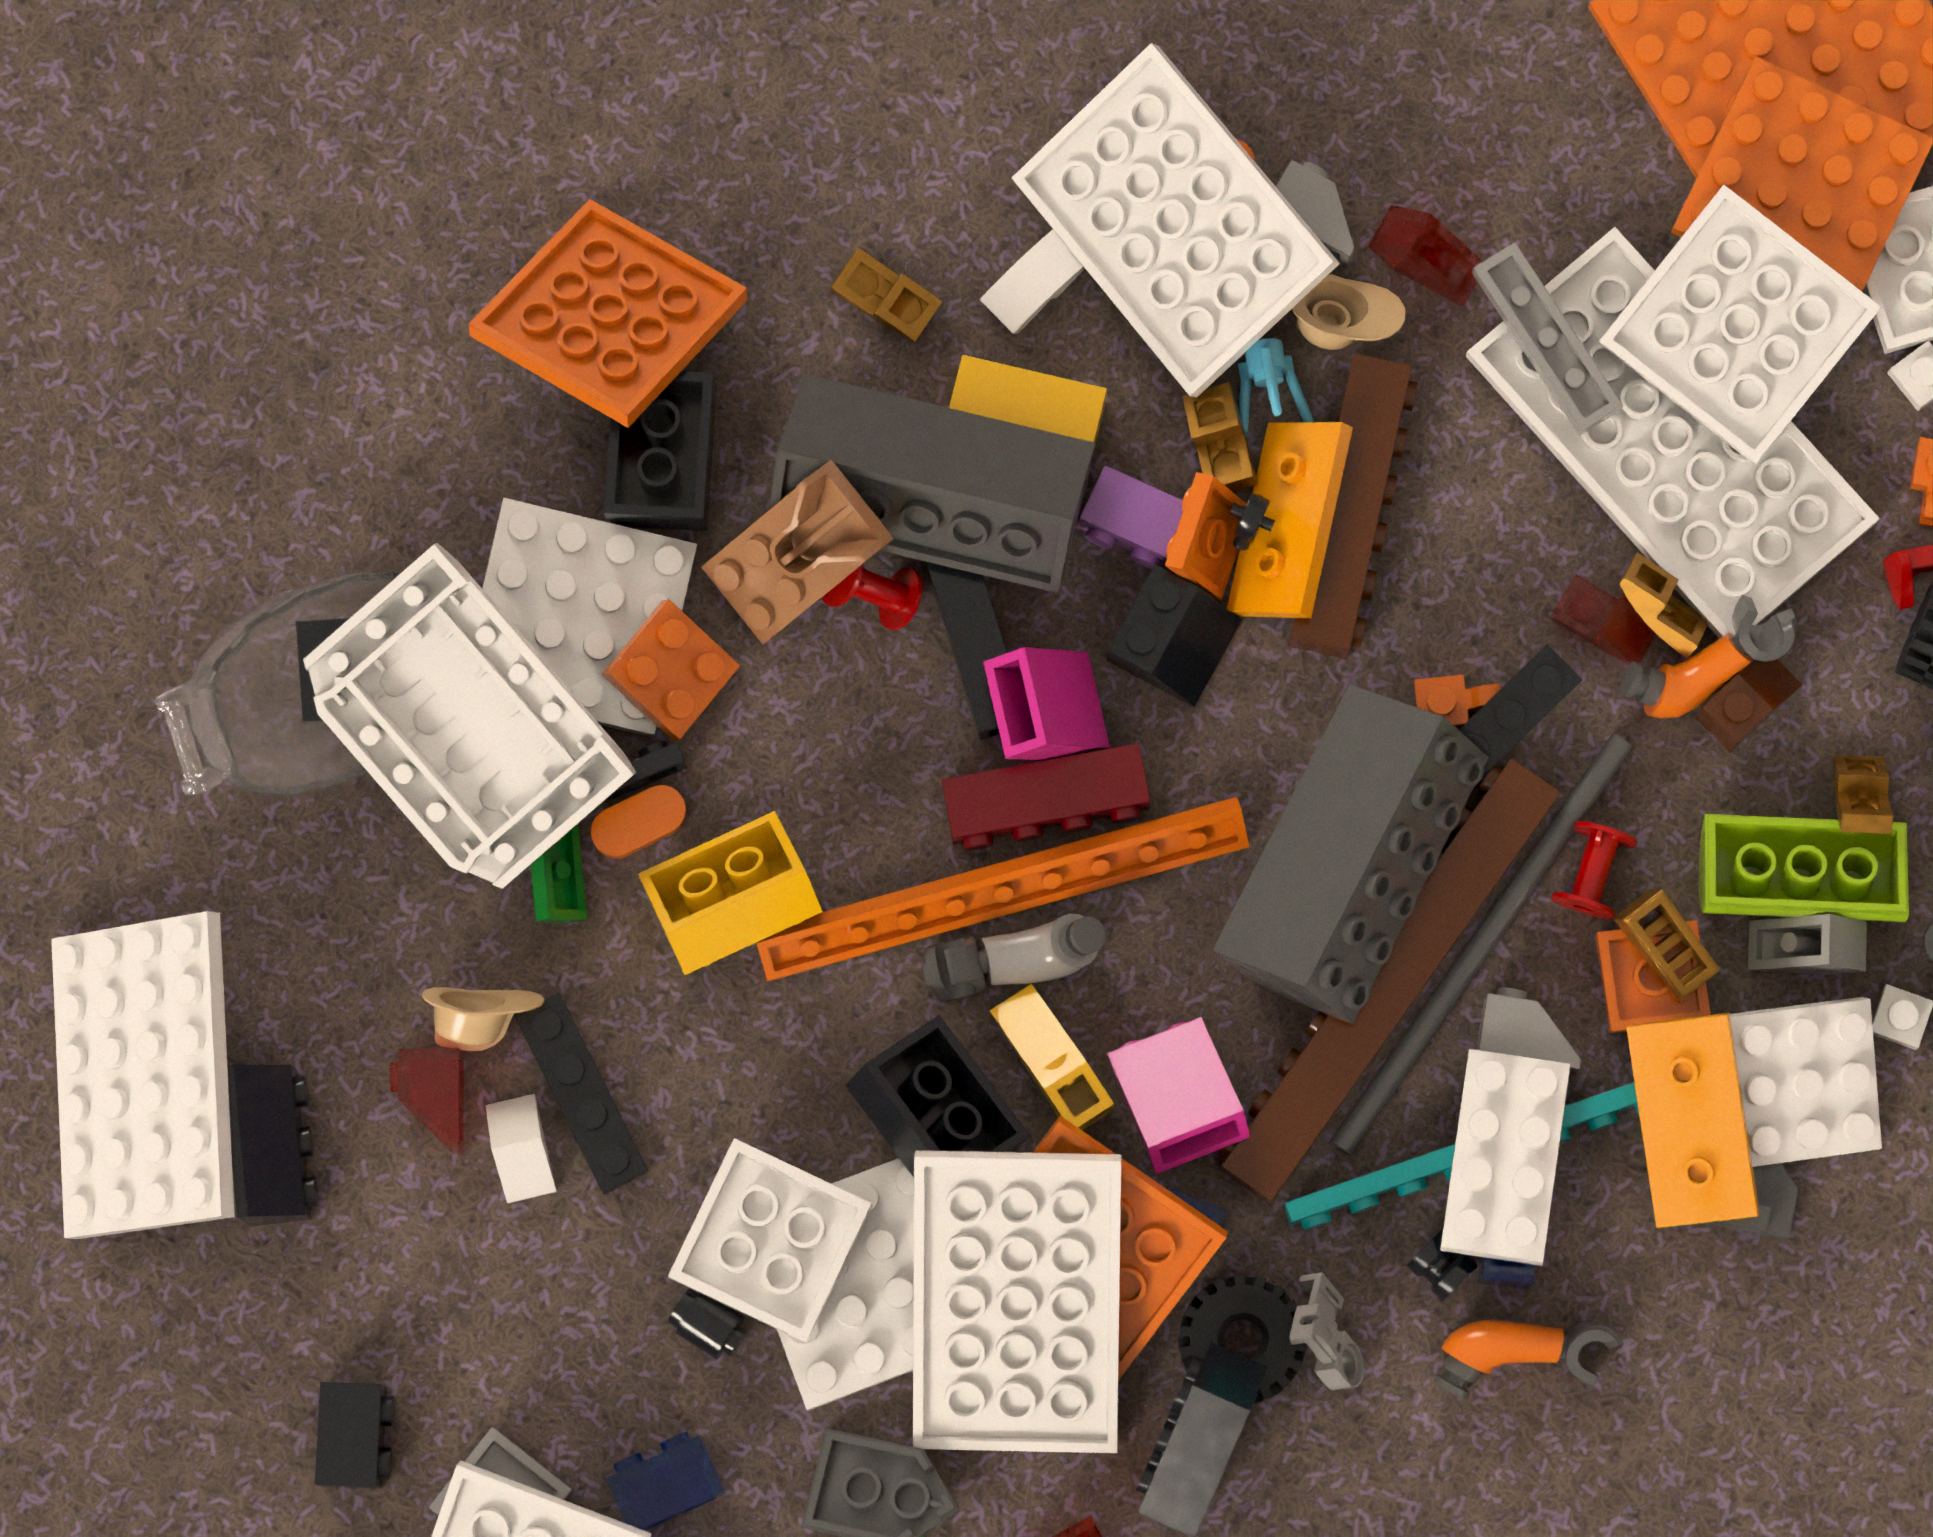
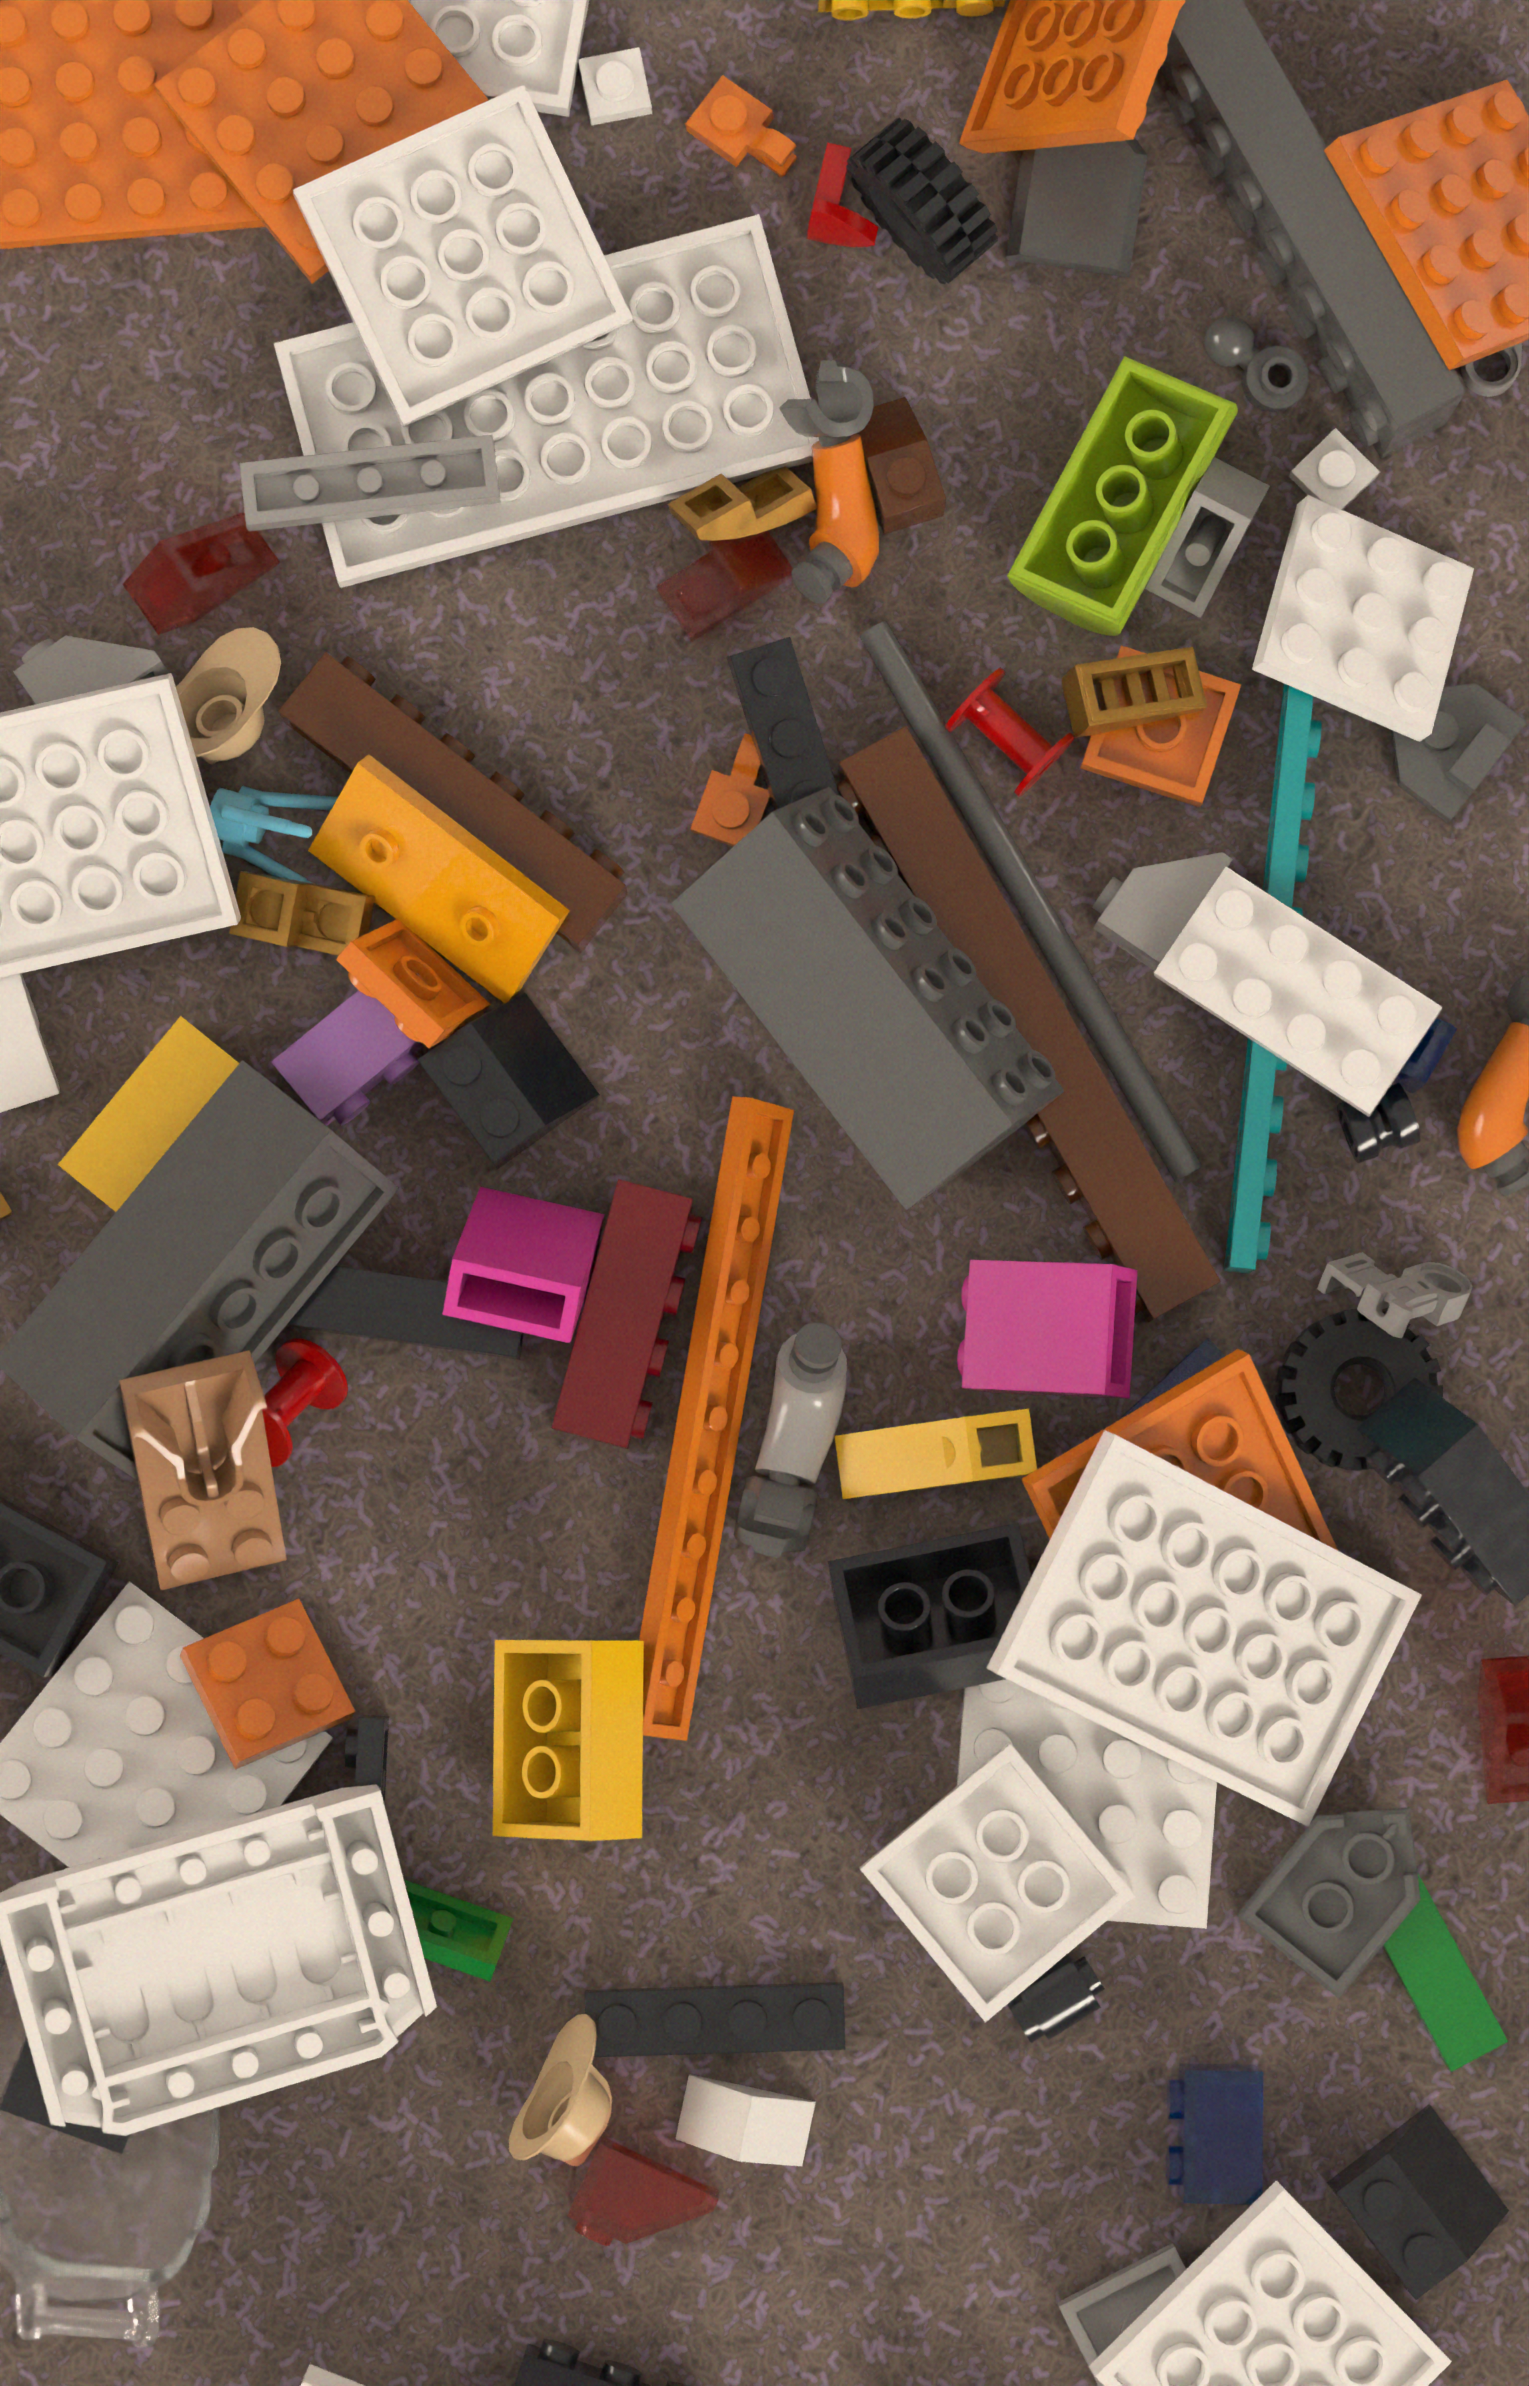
camera: 70 degrees left, 5 degrees up
(638, 821) = (426, 1803): orange tile -> none
(1250, 520) = (418, 924): black piece -> none
(1693, 1120) = (1355, 759): light orange plate -> none
(1862, 794) = (1065, 391): pearl gold slope -> none

